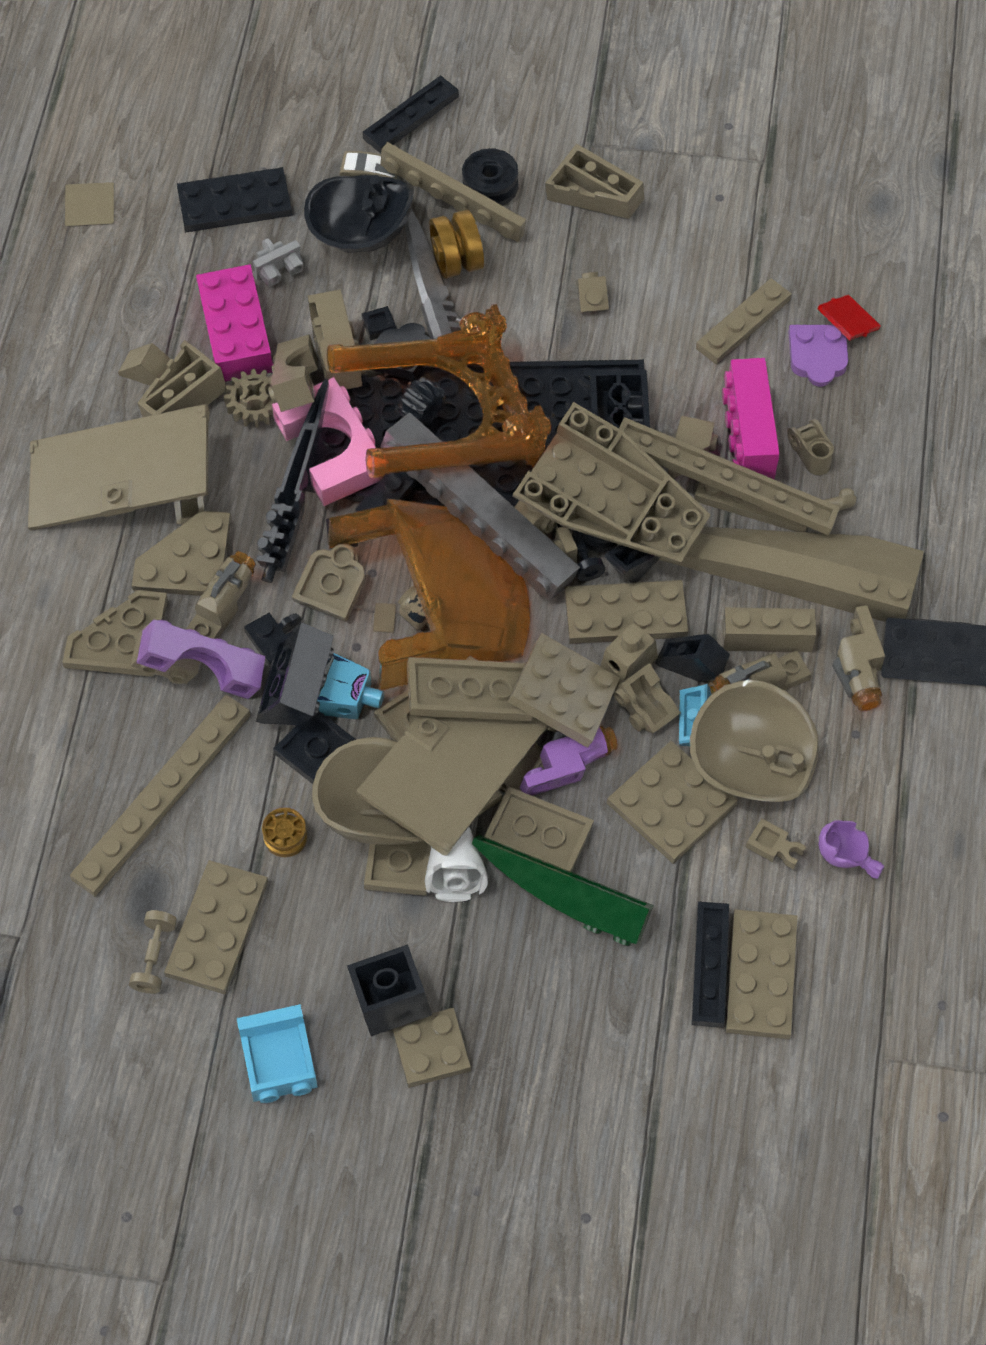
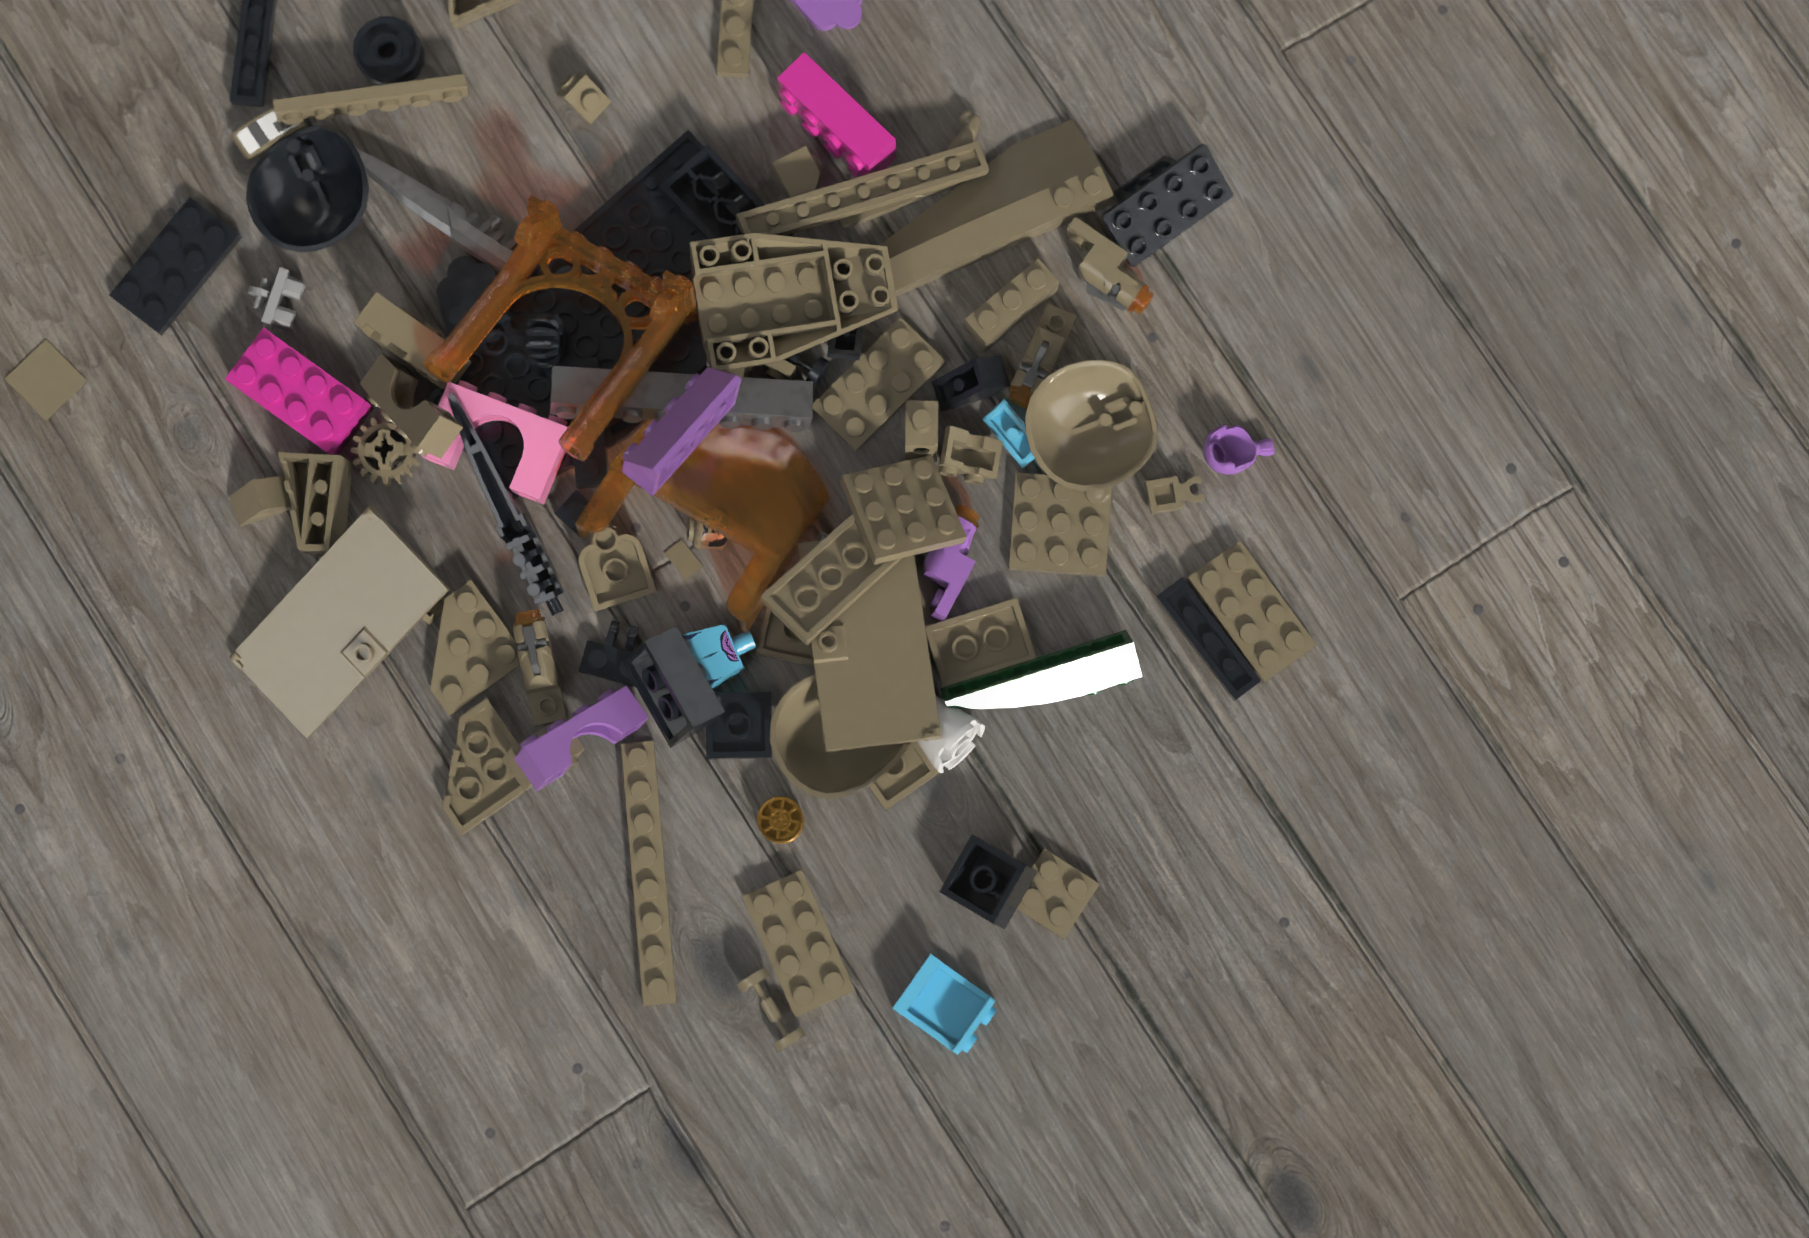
camera: 40 degrees left, 20 degrees up
(377, 322) = (422, 283): black tile -> none
(456, 243) = (426, 151): pearl gold wheel -> none
(456, 512) = (681, 428): none -> medium lavender slope
(810, 443) = (896, 90): dark tan piece -> none

